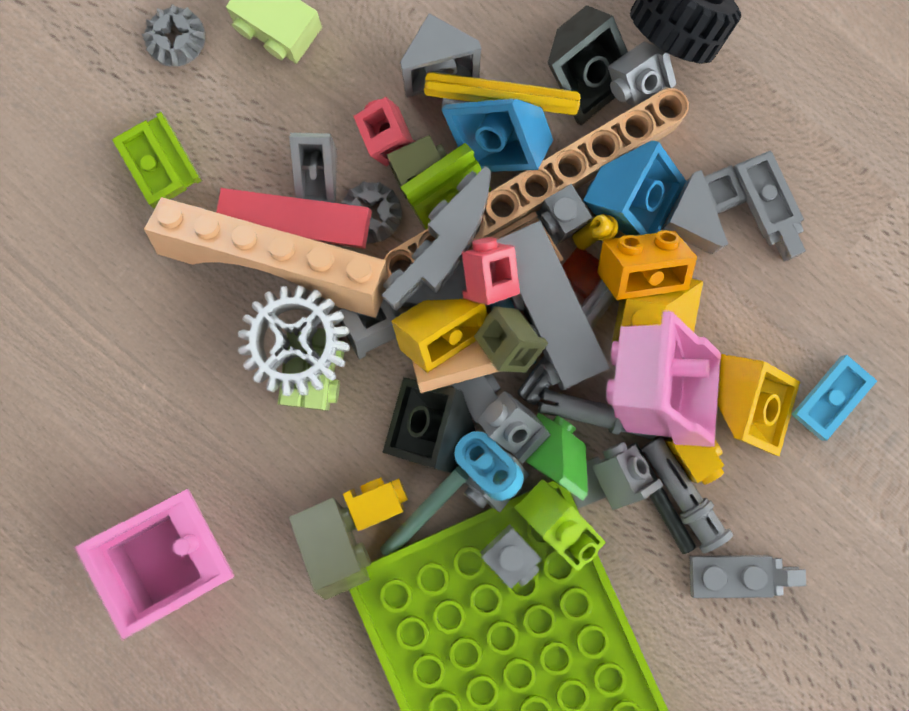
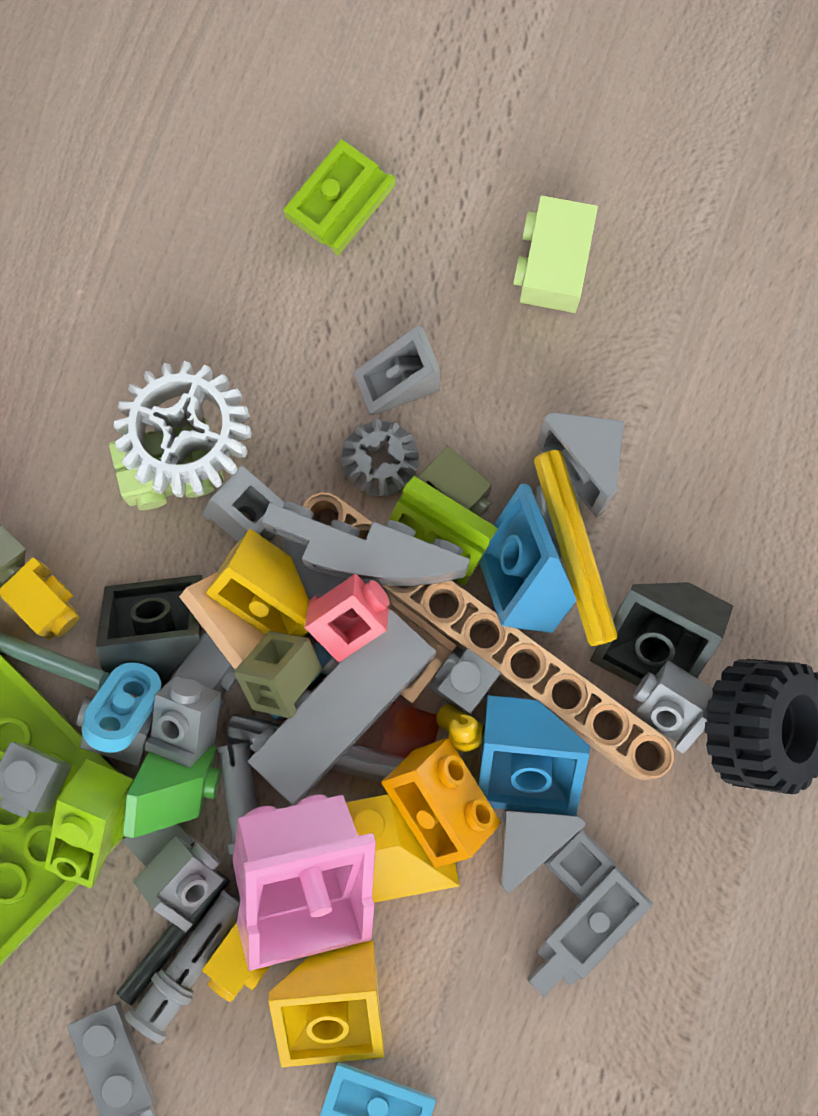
camera: 70 degrees right, 5 degrees down
(185, 47) = (485, 173): light grey gear -> none
(204, 236) = (268, 289): light nougat arch -> none
(302, 217) = (333, 373): coral tile -> none
(382, 129) = (480, 430): coral brick -> none

